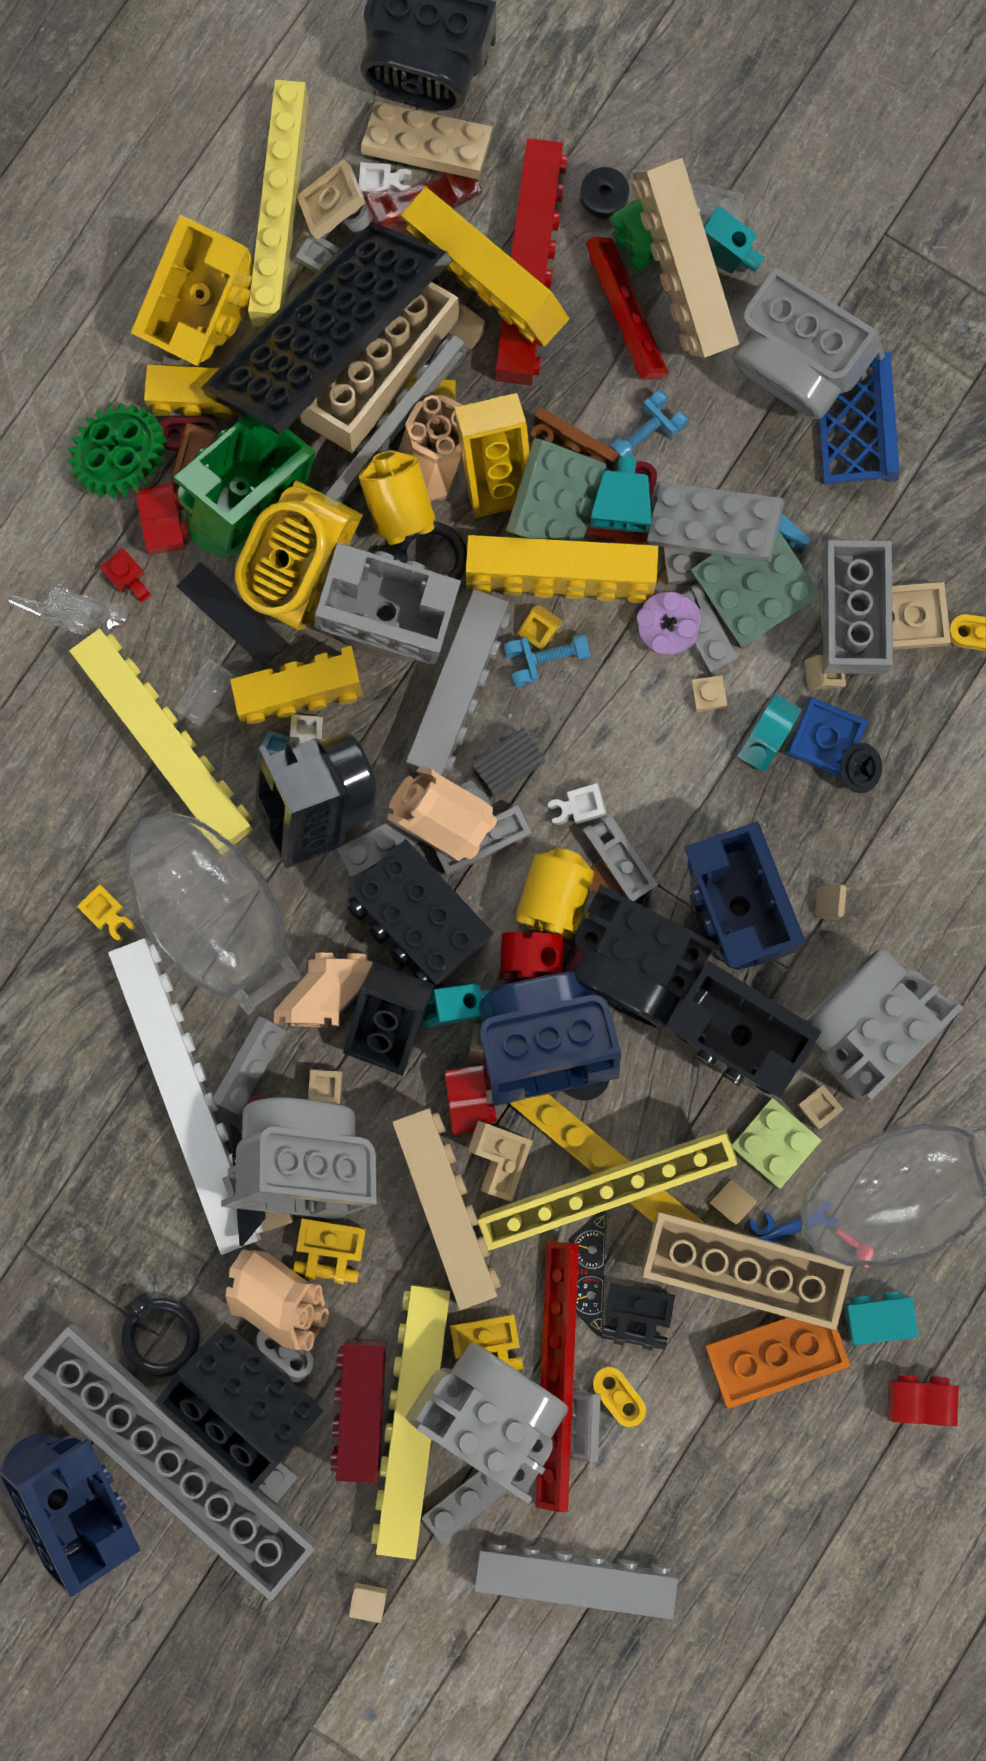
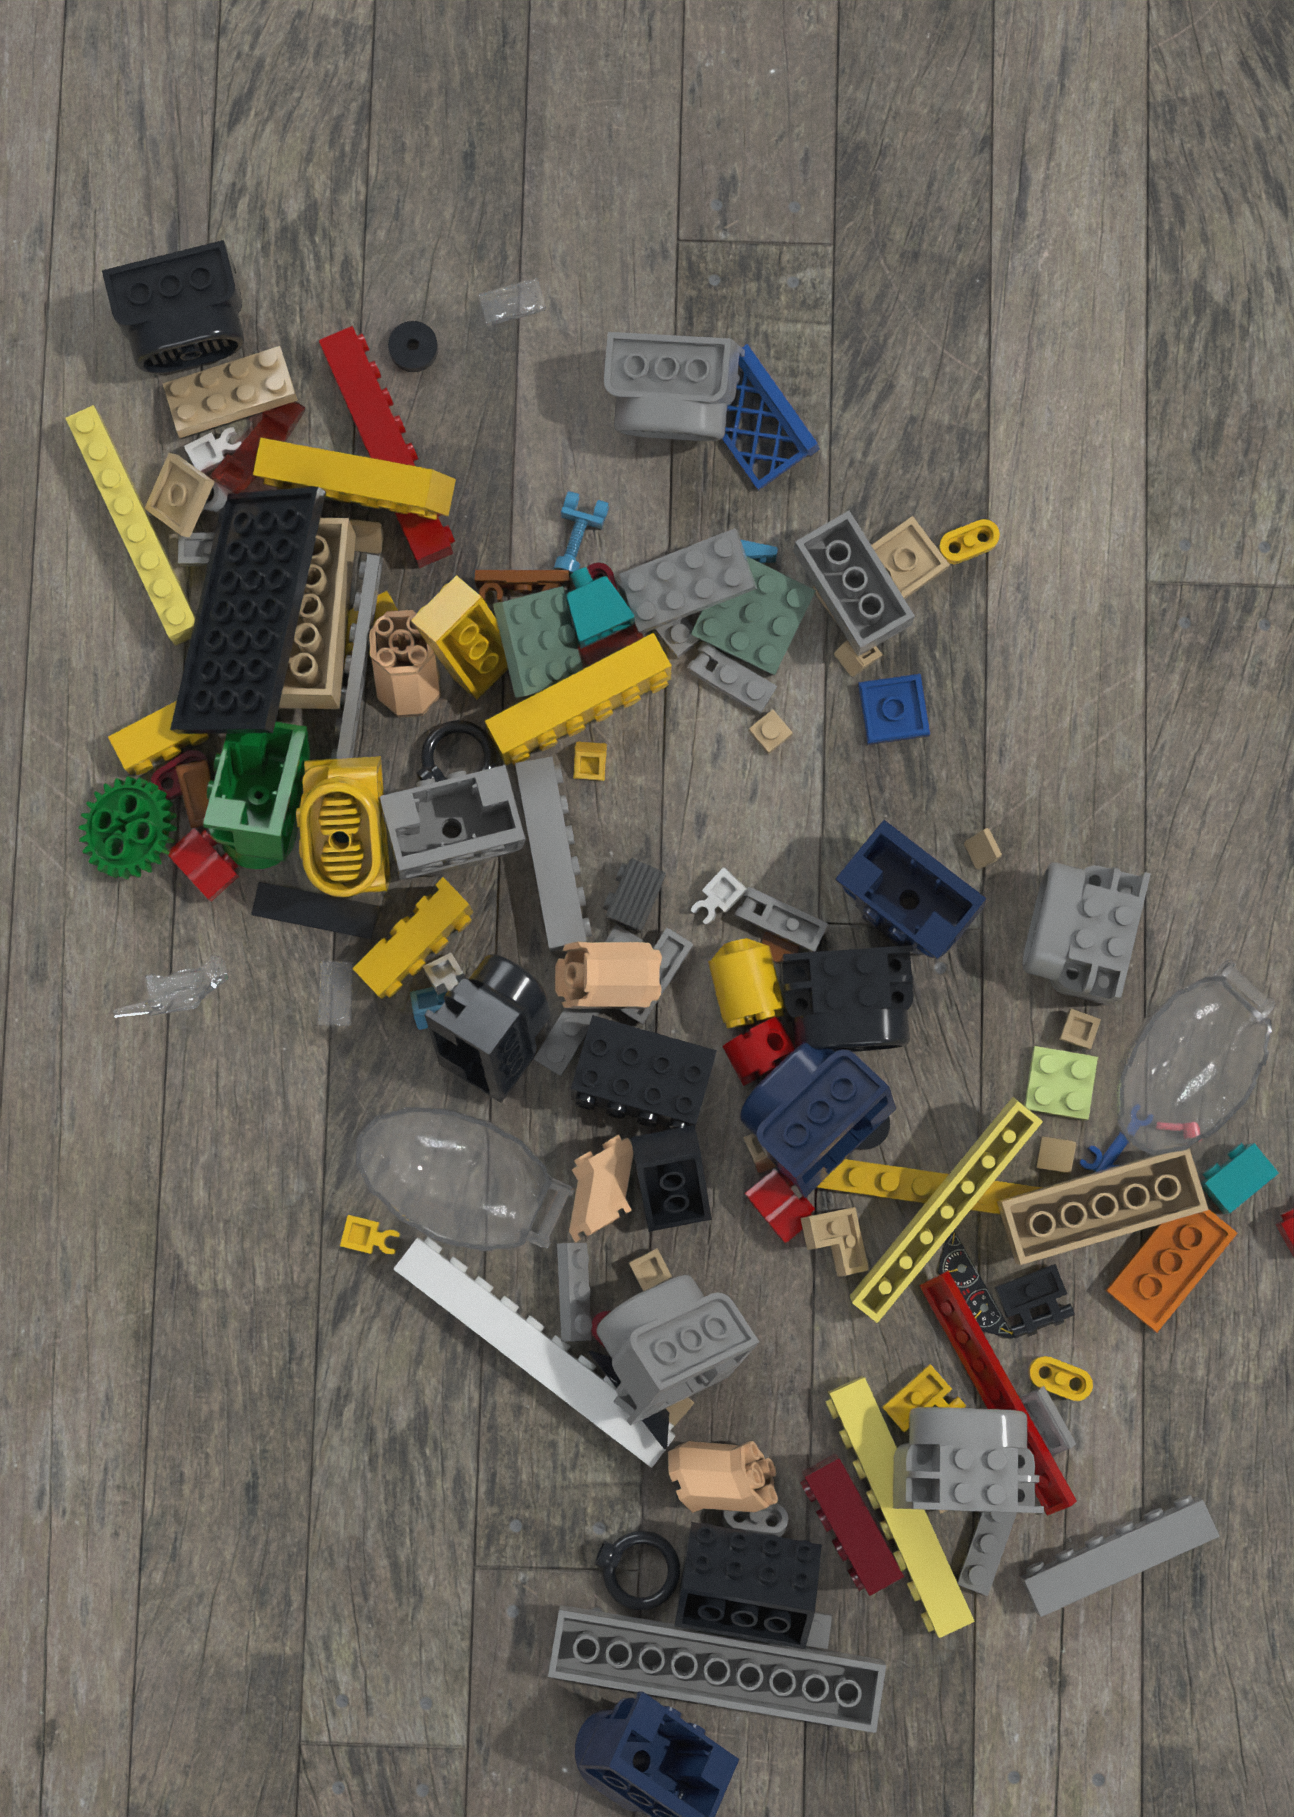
camera: 30 degrees left, 0 degrees up
(125, 574) = (199, 930): red plate -> none
(159, 737) = (319, 1055): light yellow brick -> none
(196, 292) = (112, 676): yellow brick -> none
(332, 1241) = (738, 1397): yellow plate -> none
(368, 1602) = (956, 1684): tan slope -> none
(397, 496) = (400, 723): yellow cylinder -> none
(445, 1208) = (818, 1310): tan brick -> none
(453, 1005) = (720, 1131): teal torso -> none
(577, 647) = (633, 759): dark azure bar -> none
(626, 308) = (495, 438): red plate -> none
(632, 234) = (469, 363): green brick -> none
(651, 623) = (702, 709): lavender plate -> none
(684, 258) = (524, 369): tan brick -> none
(725, 1004) = (1010, 994): black brick -> none
(731, 242) = (548, 330): teal torso -> none
(769, 733) = (844, 734): teal brick -> none
(870, 767) = (945, 711): black gear -> none

